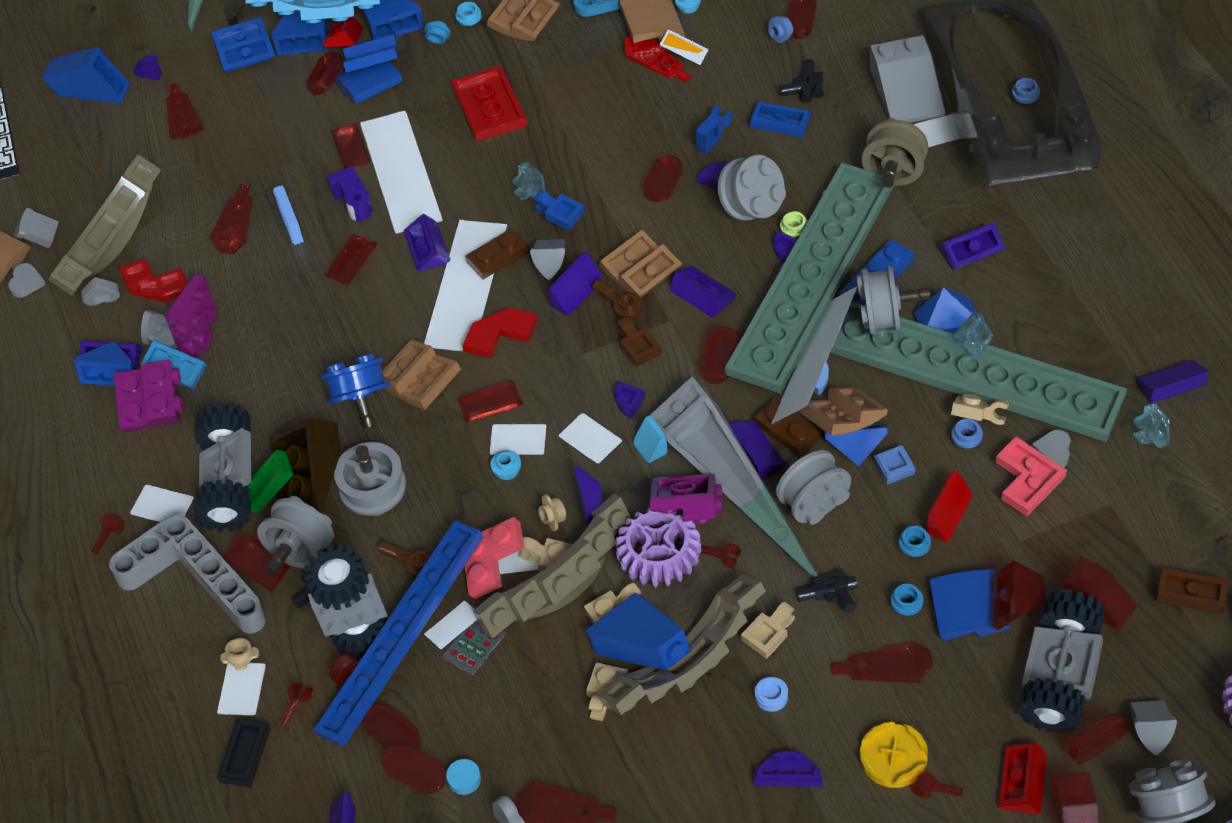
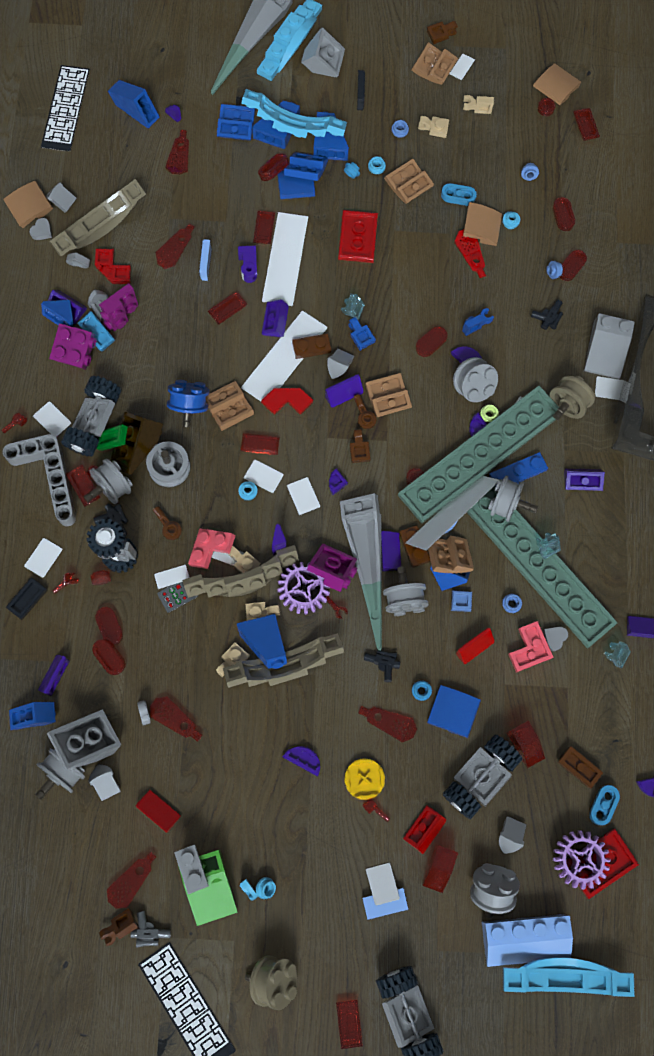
camera: 15 degrees right, 20 degrees up
(239, 653) = (51, 532): tan plate -> none
(344, 33) = (296, 146): red slope -> none
(398, 634) = (138, 571): blue plate -> none
(463, 776) = (133, 673): medium azure tile -> none
(552, 512) = (257, 535): tan plate -> none
(650, 440) = (334, 517): medium azure slope -> none
(684, 47) = (491, 253): sticker -> none
(701, 291) = (414, 430): dark purple slope -> none
(717, 352) = (400, 479): clear red tile -> none
(767, 632) = (335, 672): tan plate -> none
(771, 694) = (319, 708): light blue tile -> none
(780, 122) = (519, 336): blue tile -> none
(914, 534) = (445, 650): dark azure plate -> none
(945, 311) = (545, 519): blue slope -> none
(974, 408) = (525, 590): tan plate -> none
(1015, 593) = (479, 724): clear red slope -> none
(1097, 738) = (477, 829): clear red tile -> none

